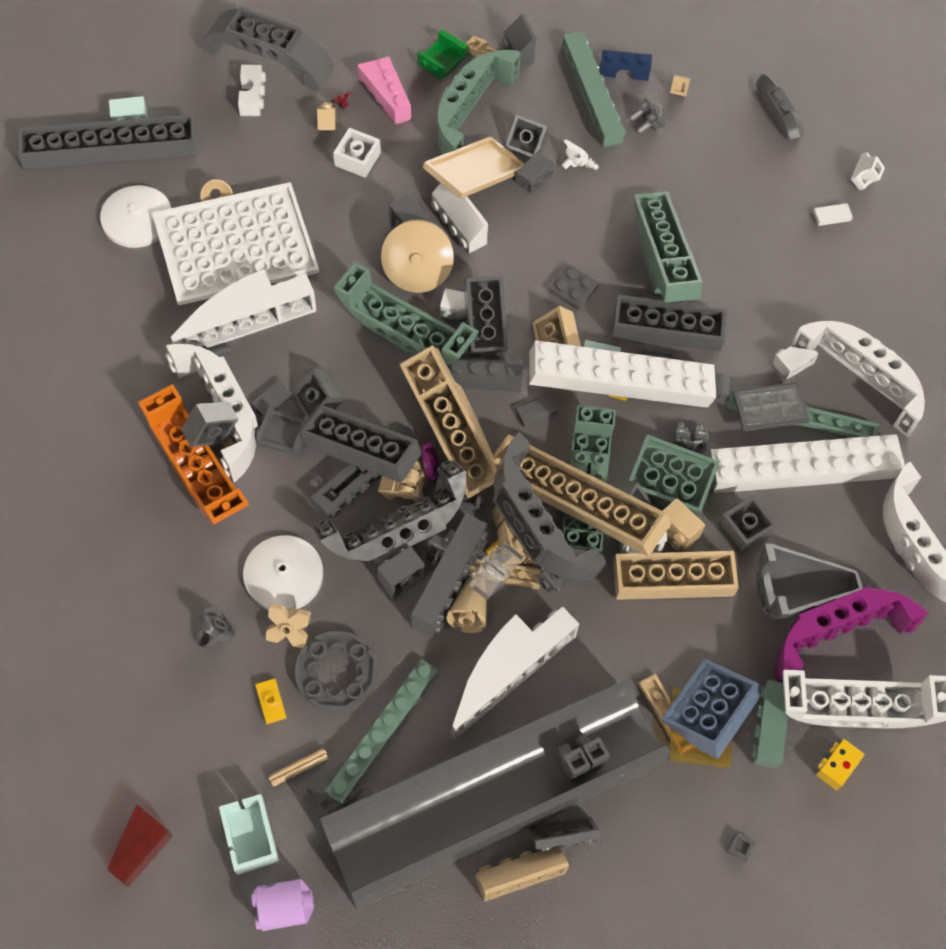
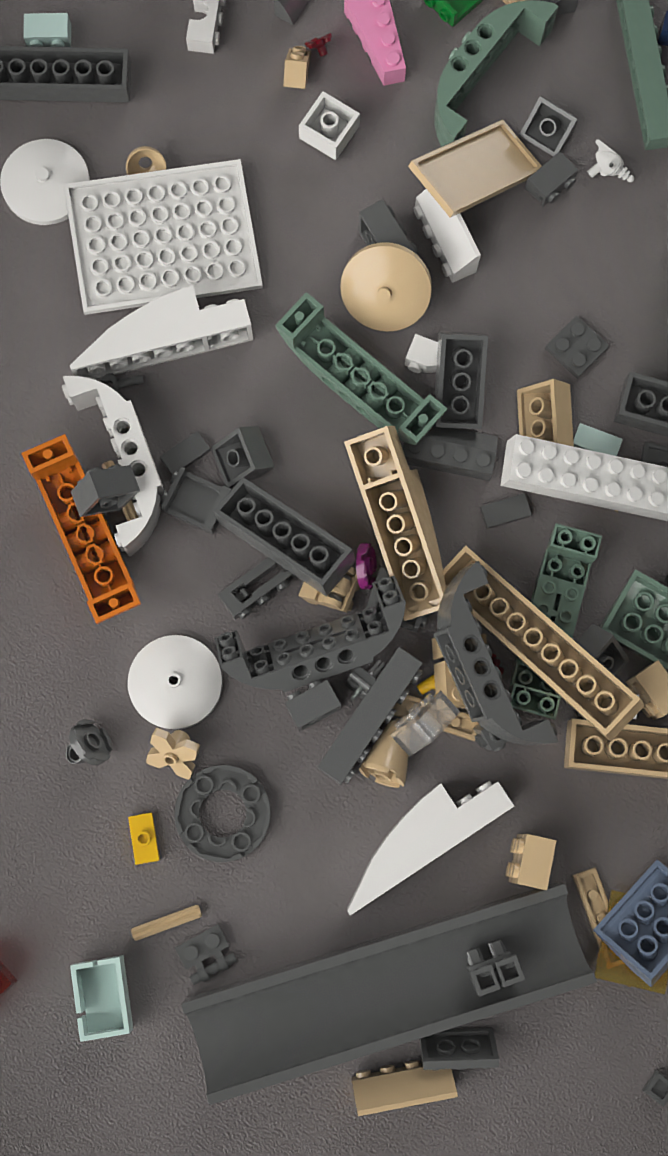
camera: 10 degrees right, 15 degrees up
(282, 904) = (130, 1085): lavender cylinder -> none
(381, 732) = (266, 895): sand green plate -> none
(600, 666) = (531, 861): none -> tan piece

